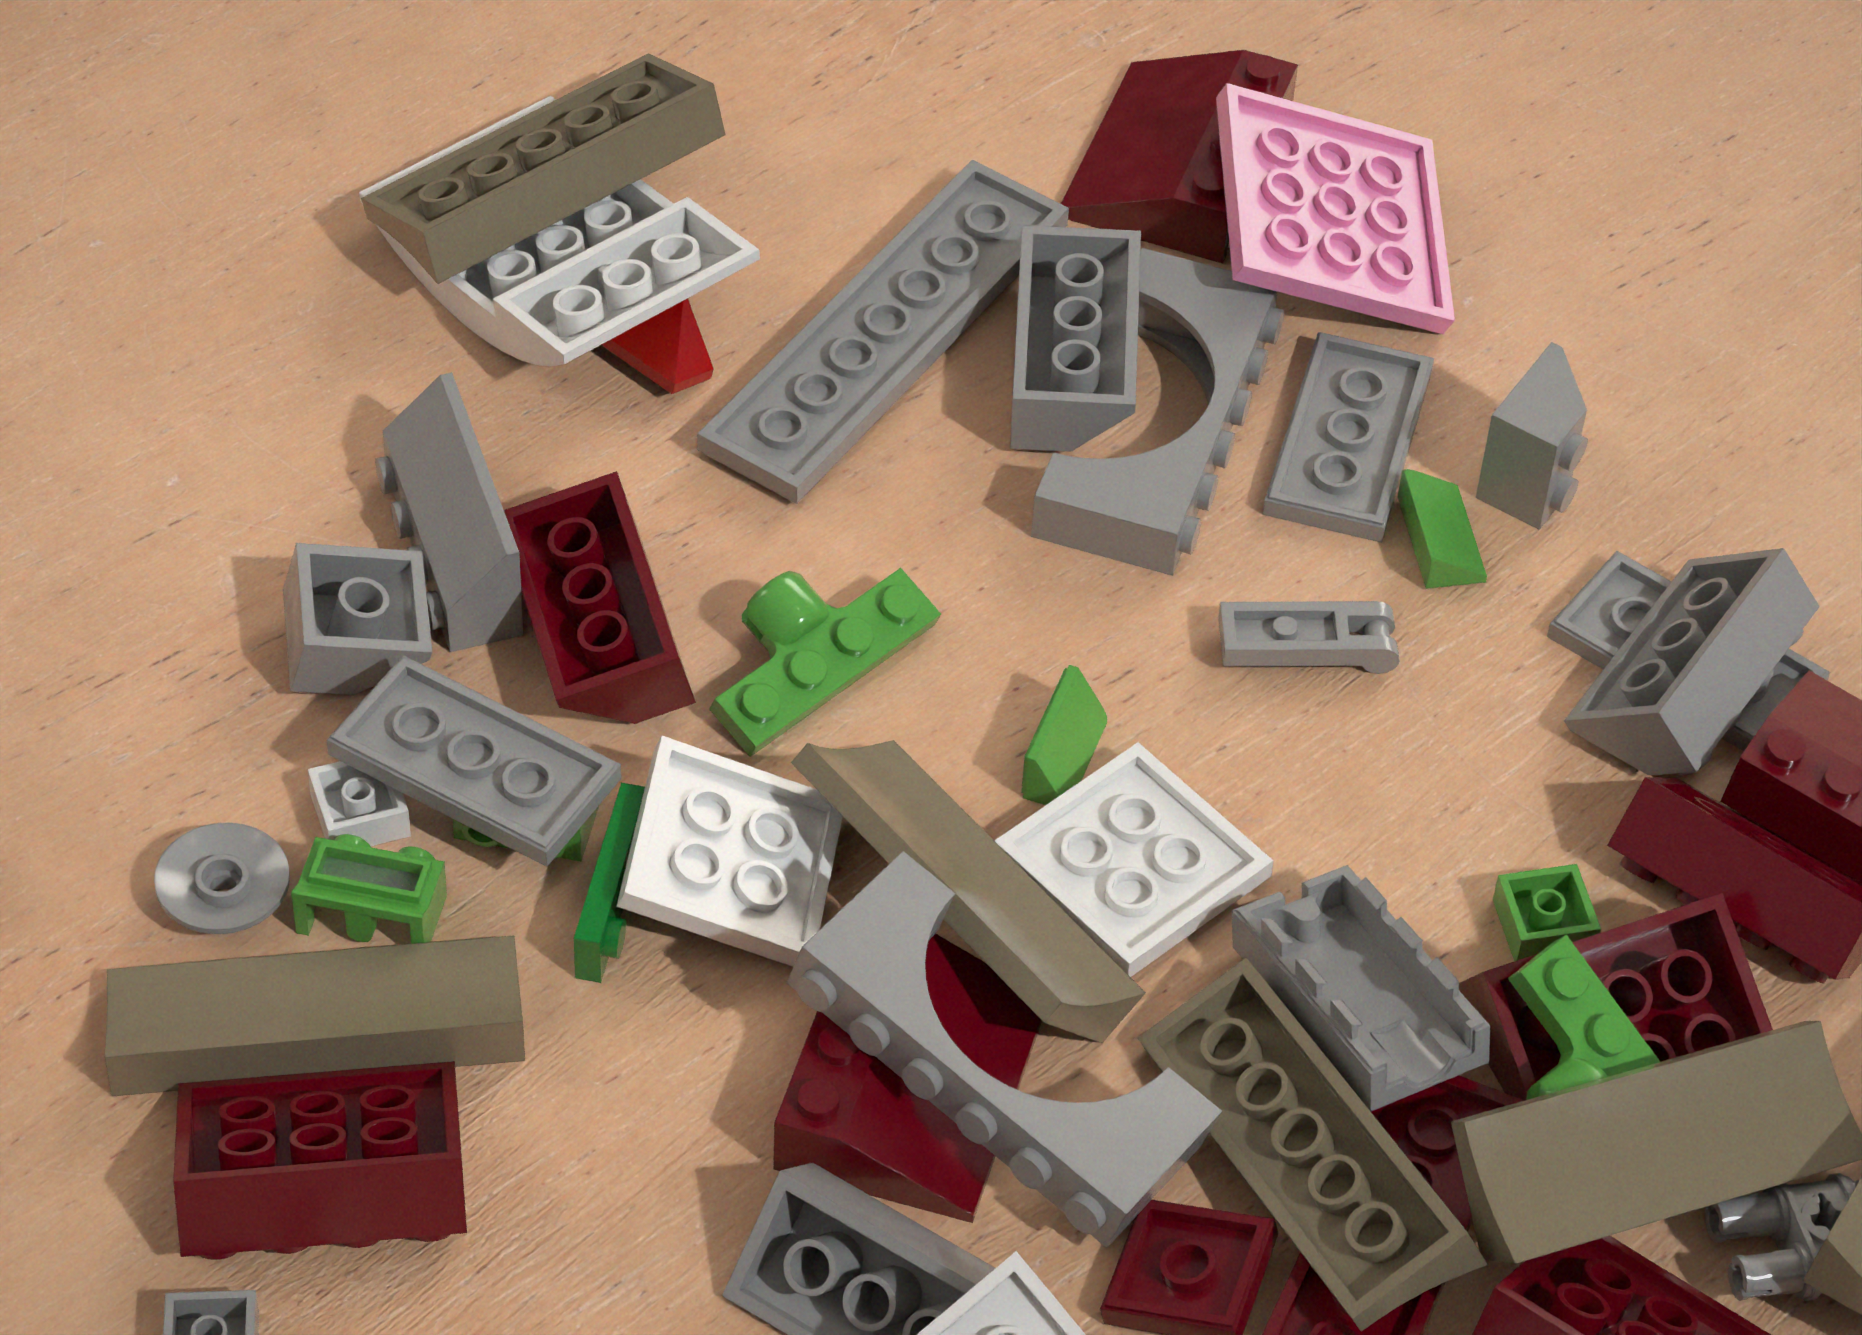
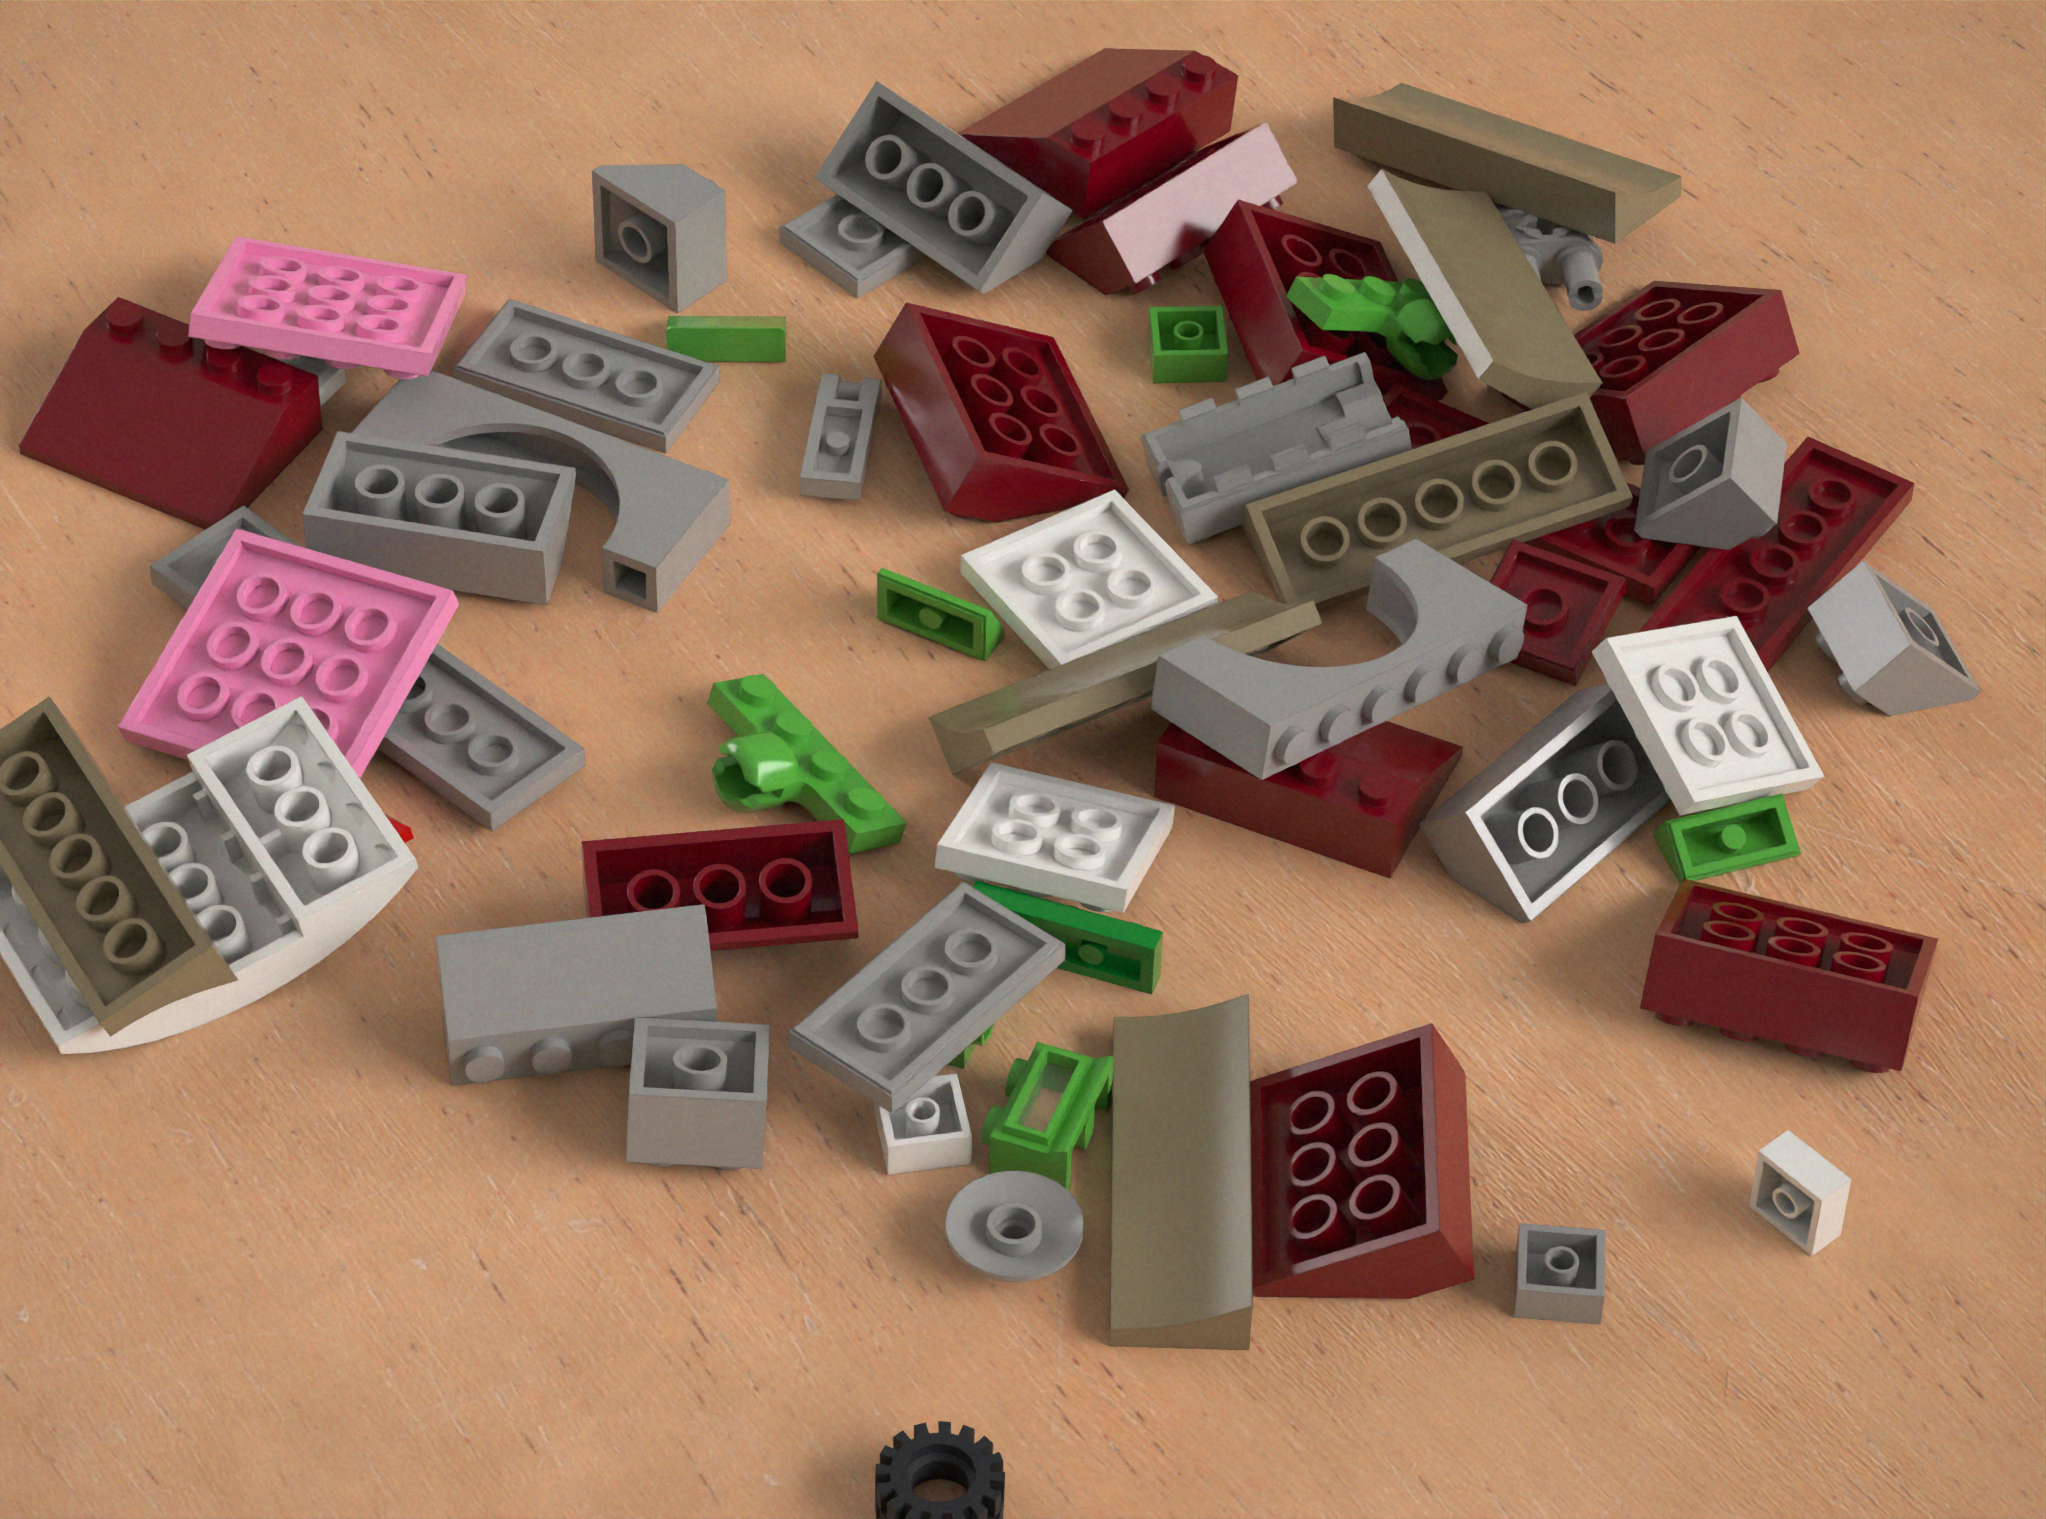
camera: 80 degrees left, 5 degrees down
(845, 261) = (283, 628): none -> bright pink plate
(1367, 756) = (994, 416): none -> dark red slope

